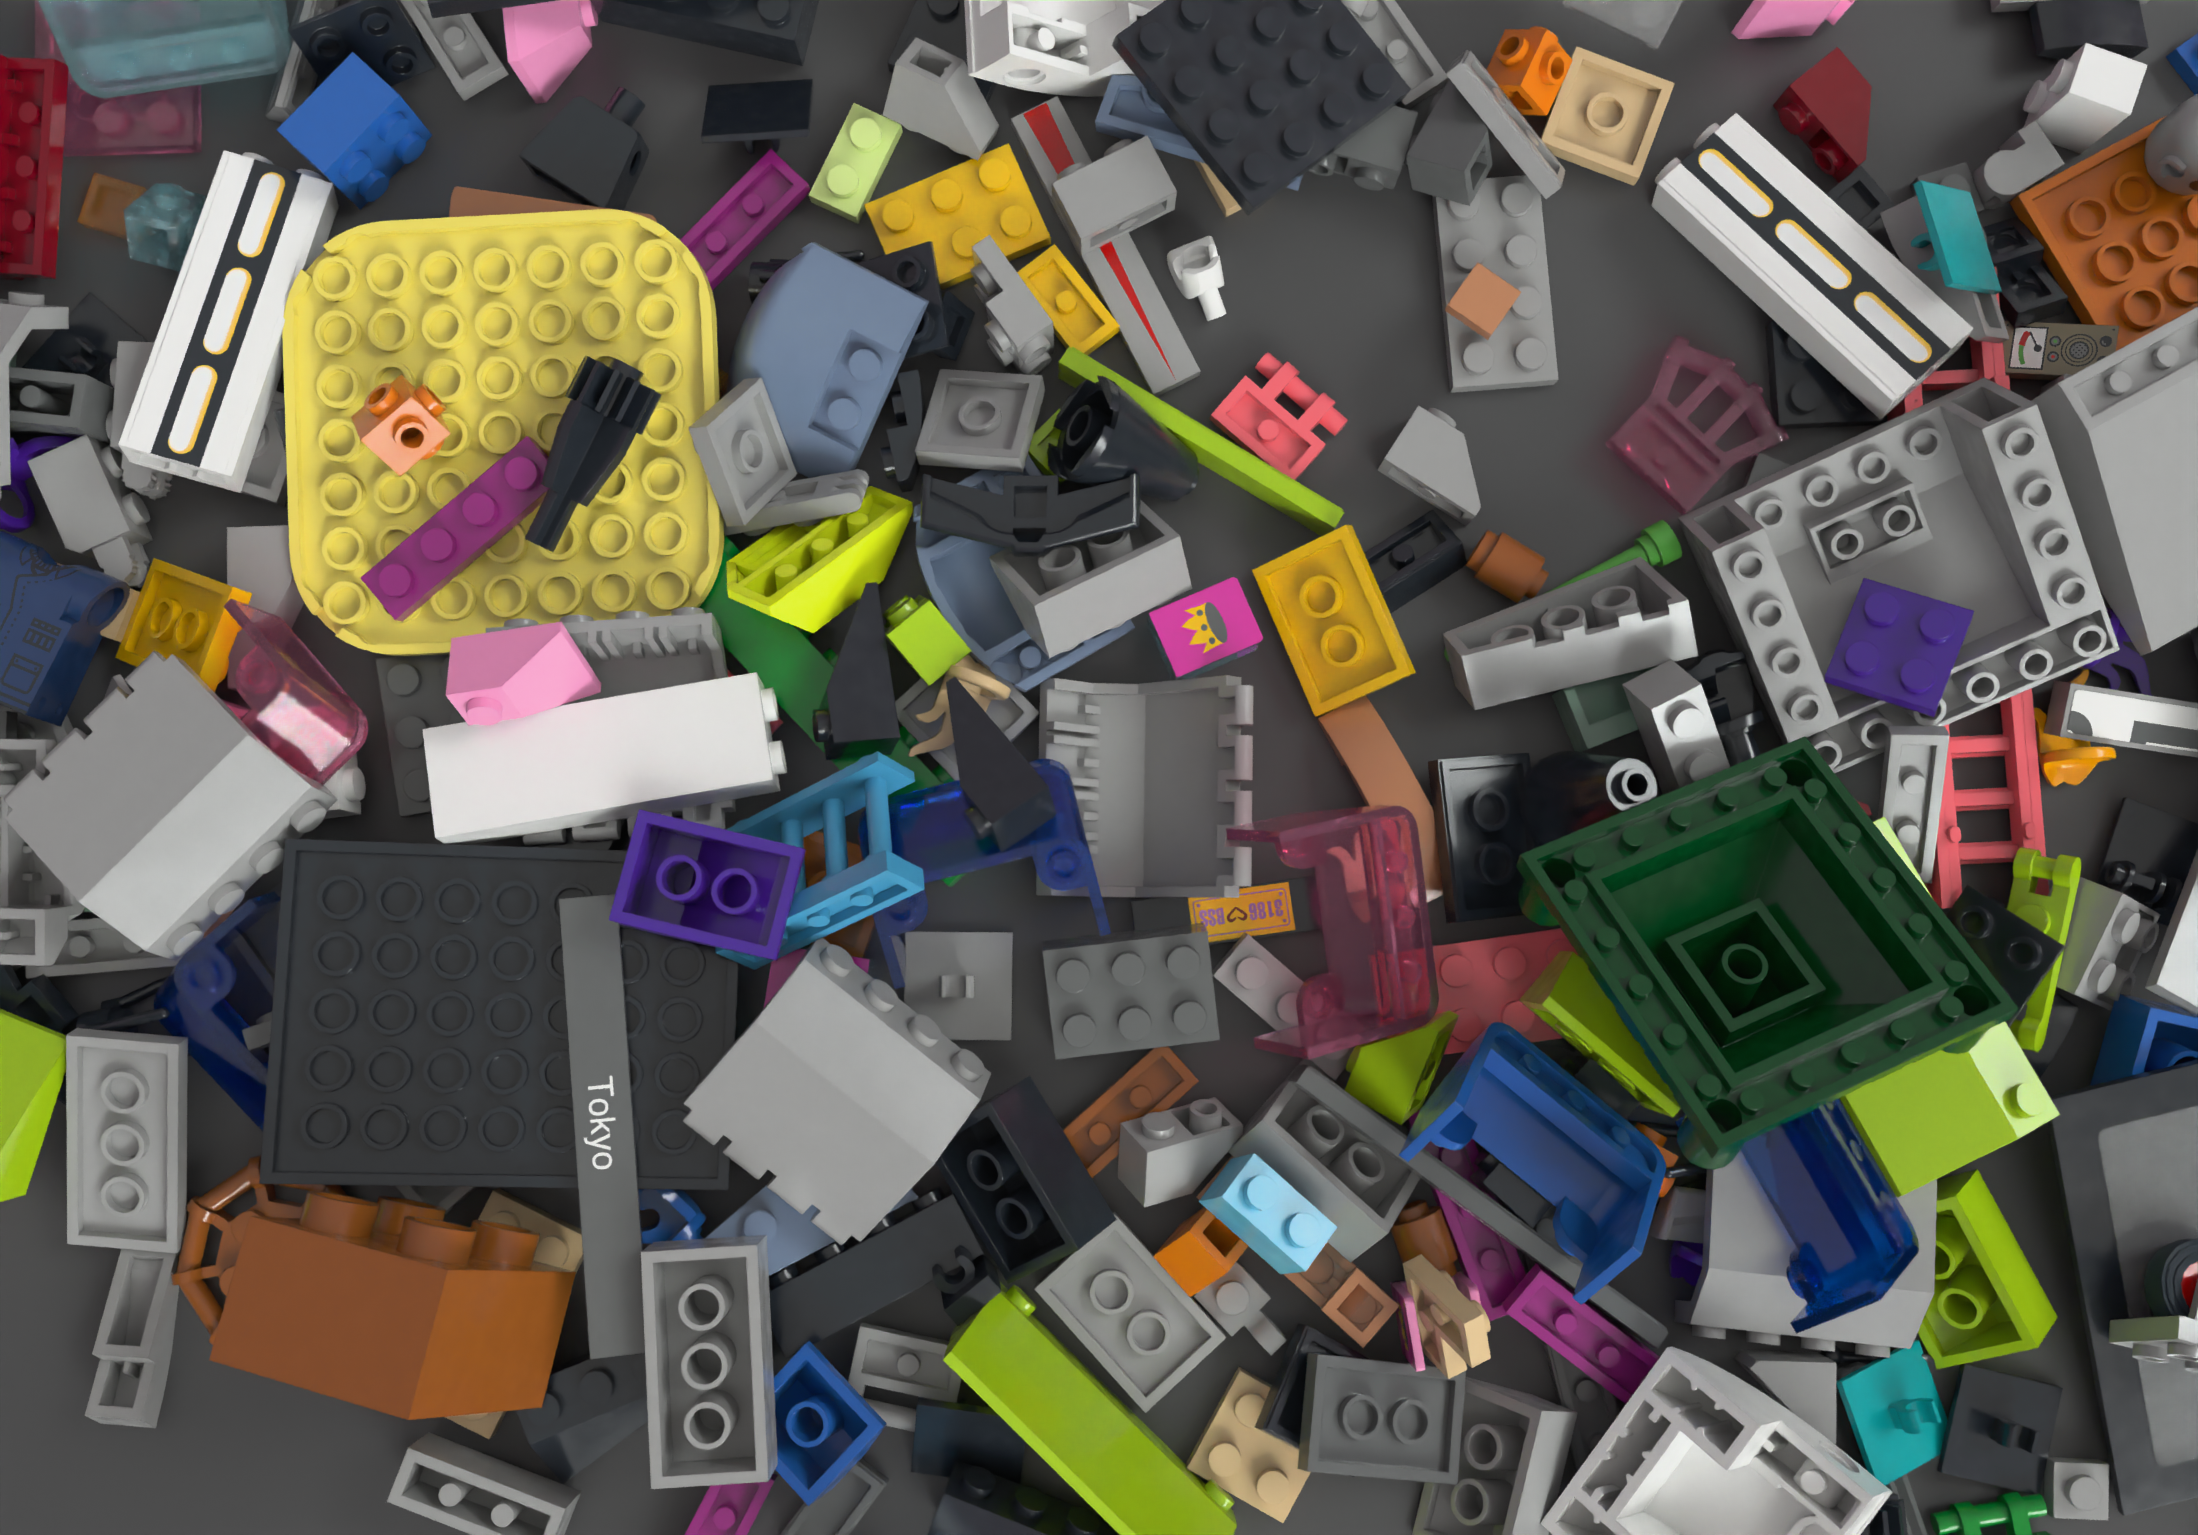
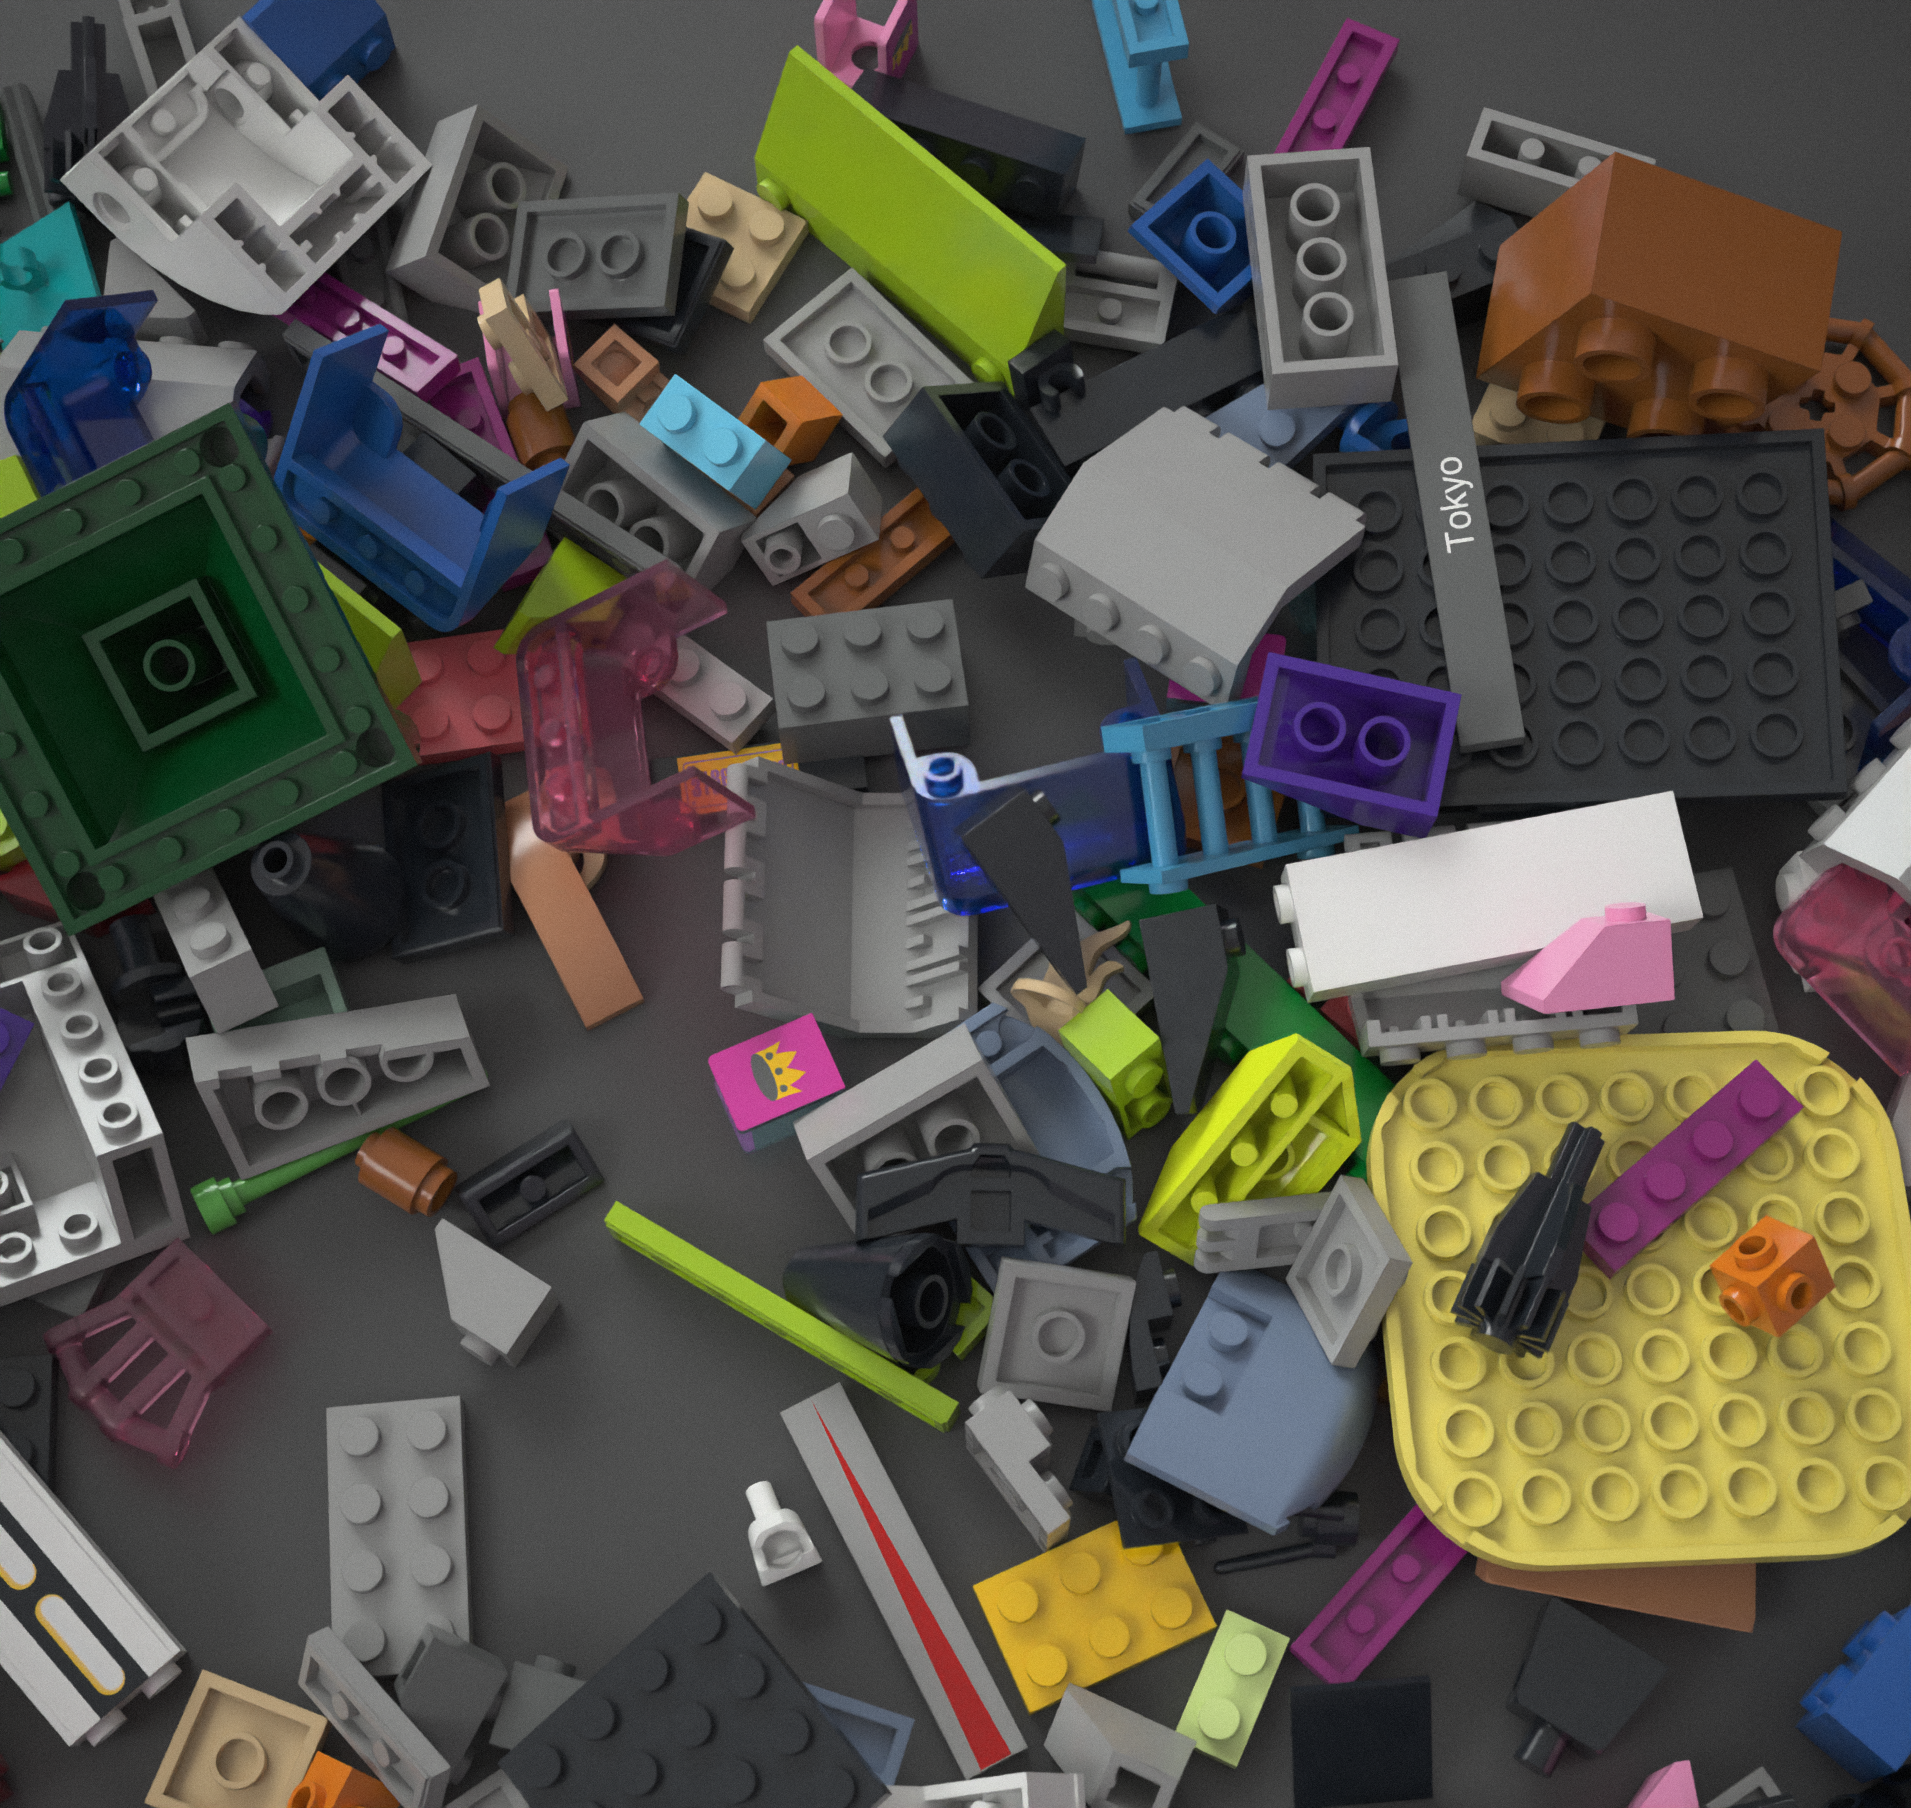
camera: 175 degrees left, 15 degrees down
(961, 982) = (1060, 697): light grey piece -> none
(1072, 306) = (951, 1497): yellow plate -> none
(1113, 194) = (892, 1627): light grey brick -> none
(1237, 1302) = (738, 371): light grey plate -> none
(1269, 430) = (693, 1336): coral plate -> none
(1333, 620) = (621, 1099): yellow plate -> none
(1482, 301) = (417, 1494): nougat tile -> none

